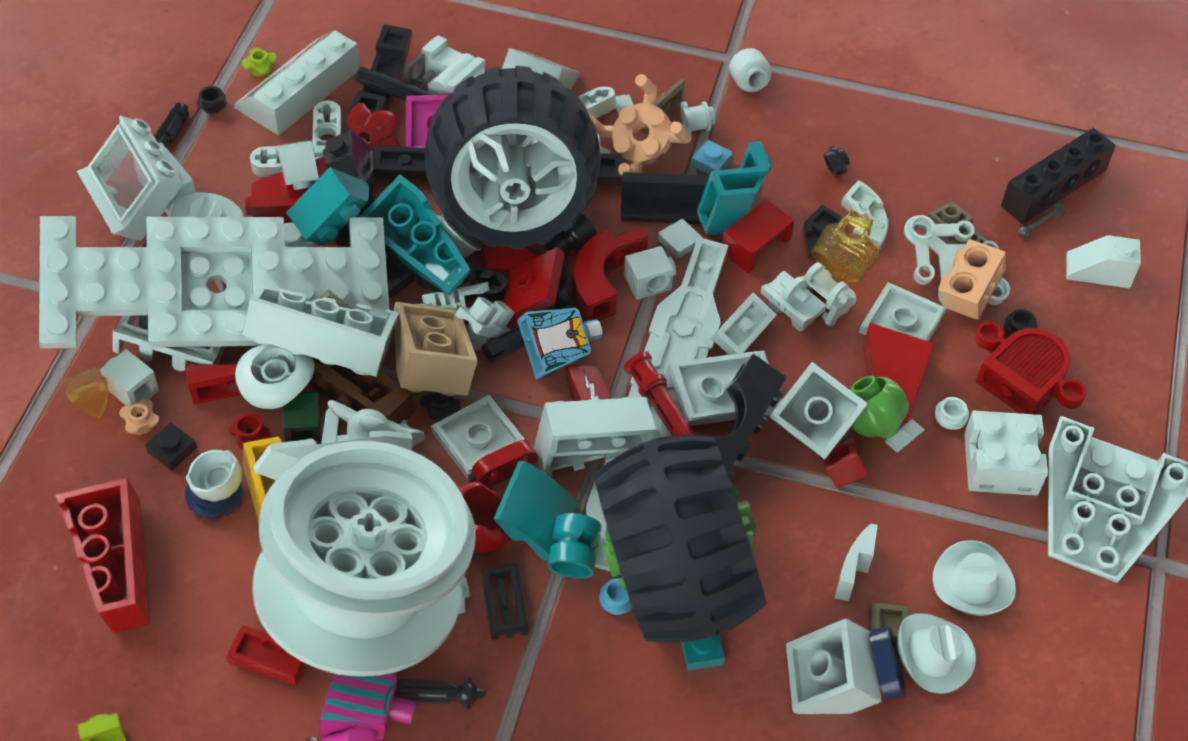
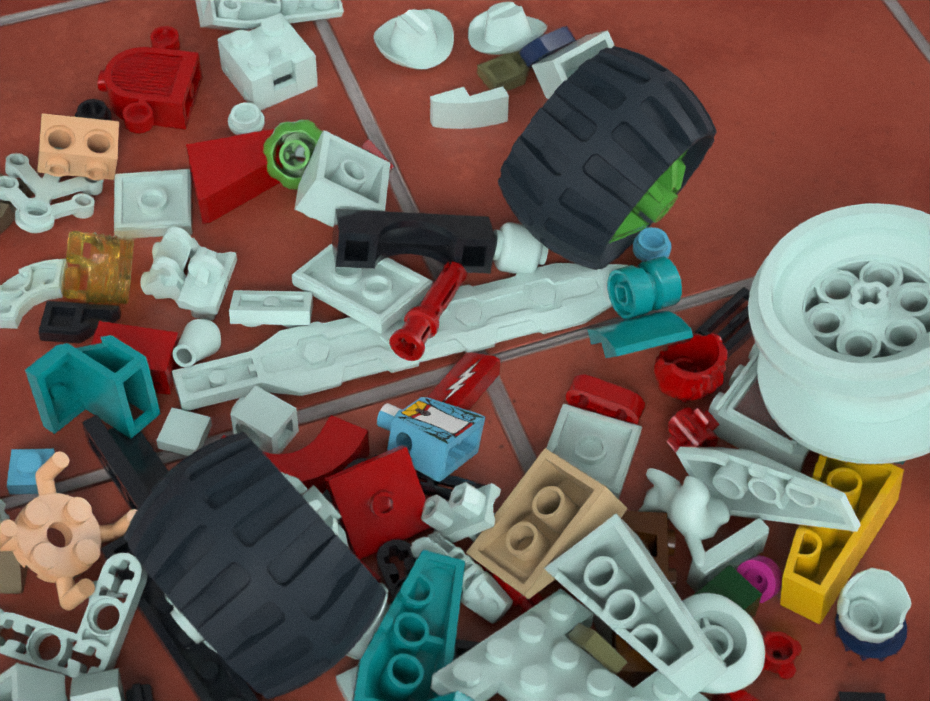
camera: 125 degrees left, 0 degrees up
(591, 430) = (523, 334): light aqua wedge -> none
(740, 266) = (199, 340): none -> light aqua cone

